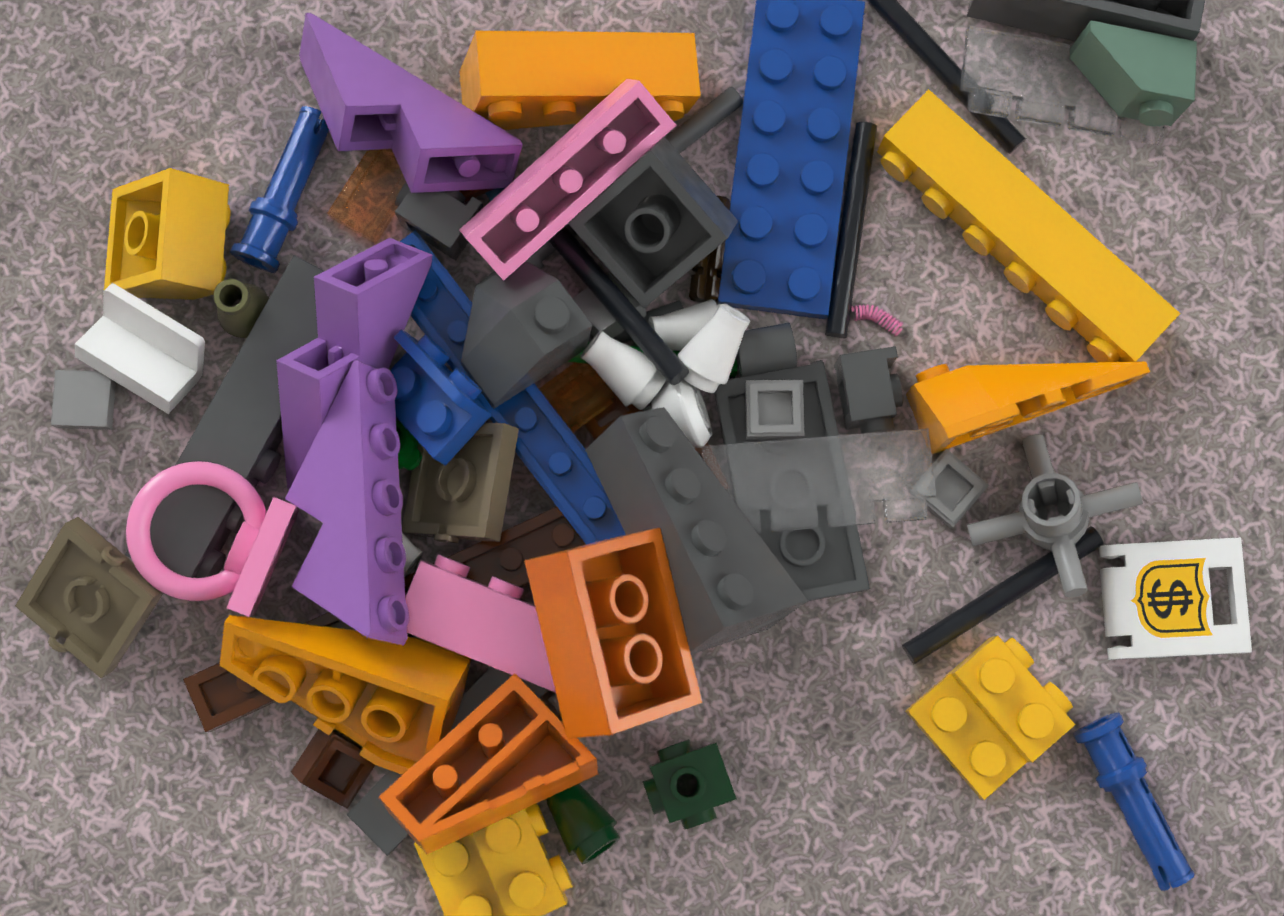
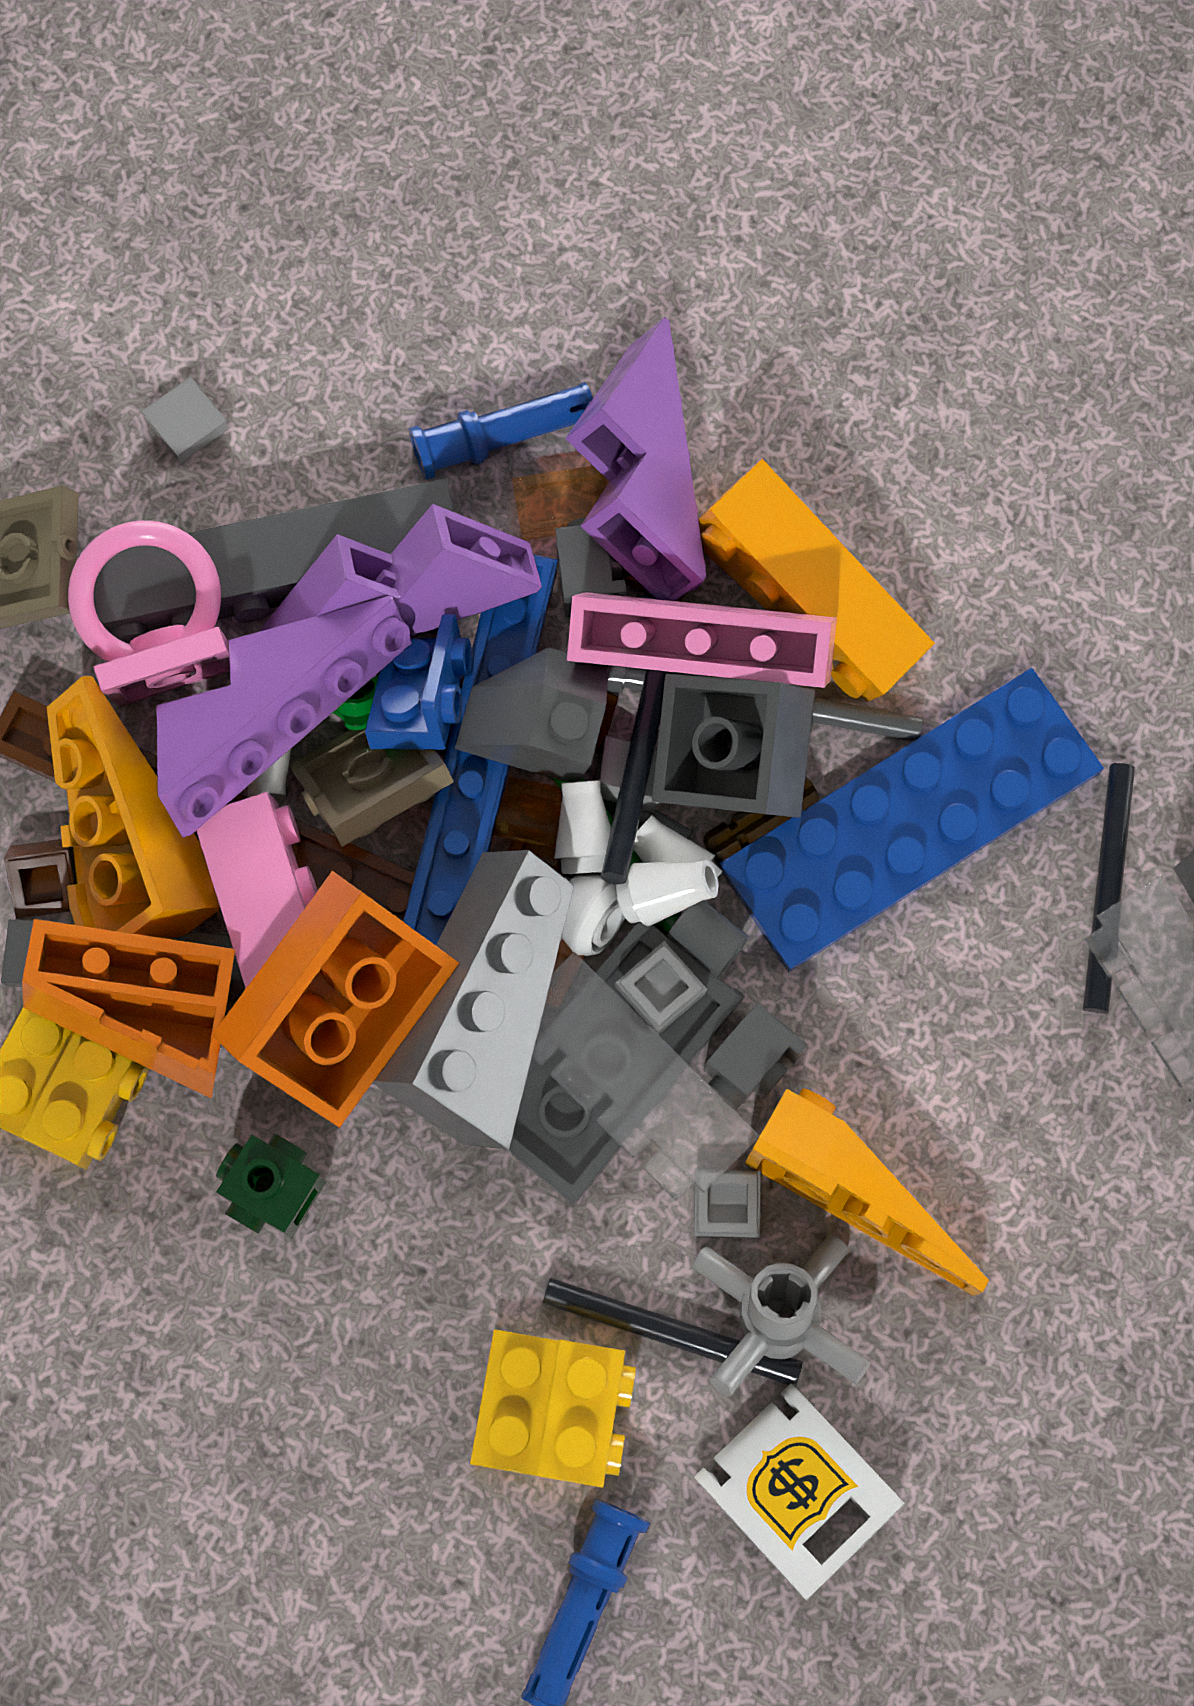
camera: 50 degrees right, 5 degrees down
(143, 349) = (264, 430): white panel -> none
(168, 236) = (378, 370): yellow slope -> none
(240, 318) = (368, 470): olive cone -> none
(582, 823) = (161, 1124): dark green cone -> none
(851, 230) = (887, 927): black bar -> none
(876, 318) = (825, 1014): bright pink leg -> none
(1025, 232) = (1018, 1080): yellow brick -> none

